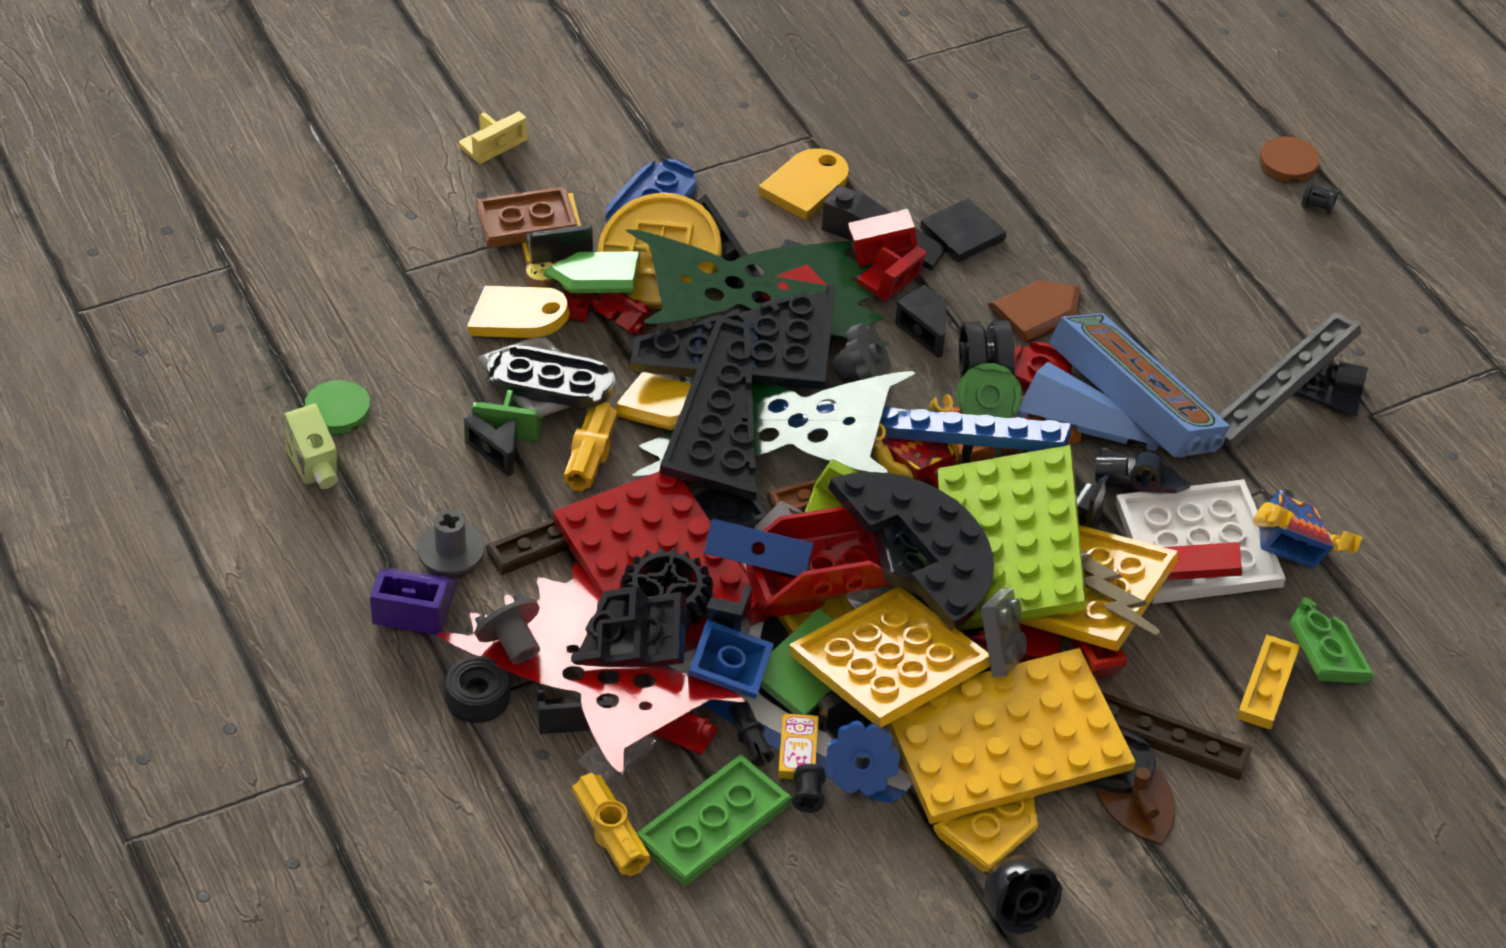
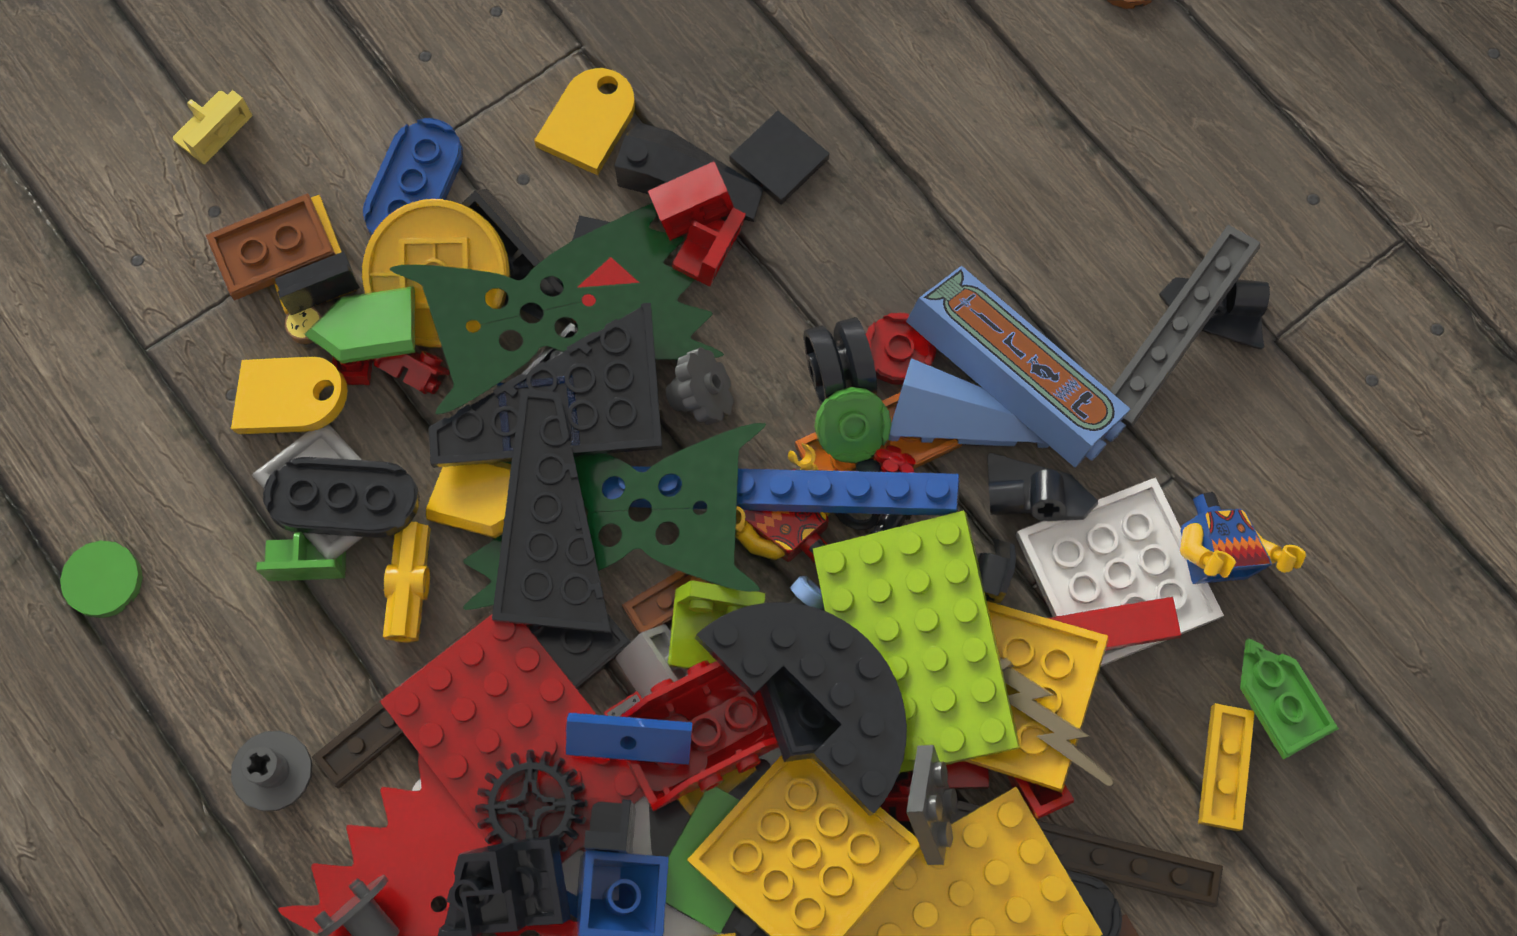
camera: 10 degrees left, 25 degrees up
(315, 456) = (67, 657): yellowish green torso -> none
(411, 600) = (239, 859): dark purple slope -> none
(495, 445) = (302, 603): black slope -> none
(923, 318) = (759, 307): black slope -> none
(1037, 307) = (882, 258): dark orange tile -> none
(1320, 197) = (1184, 26): black bush -> none

